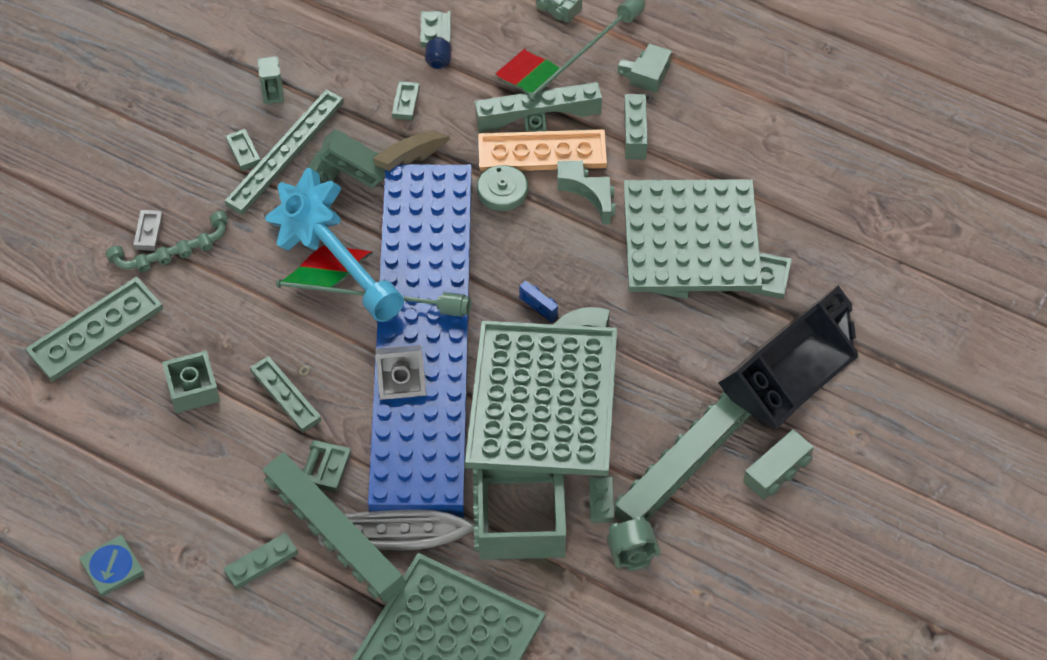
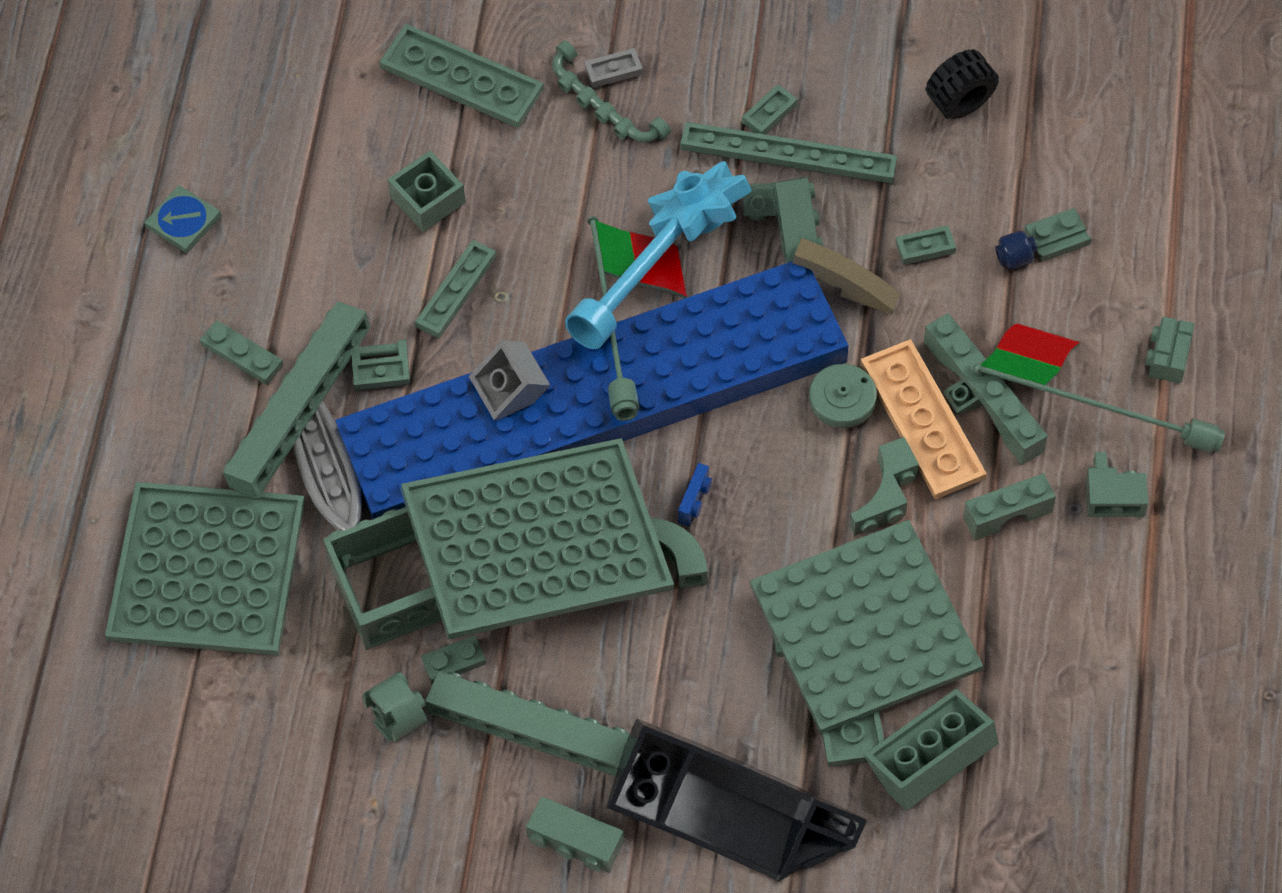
camera: 70 degrees right, 5 degrees up
(270, 80) = (875, 92): sand green brick -> none
(295, 28) = (962, 84): none -> black tyre
(799, 231) = (932, 748): none -> sand green slope

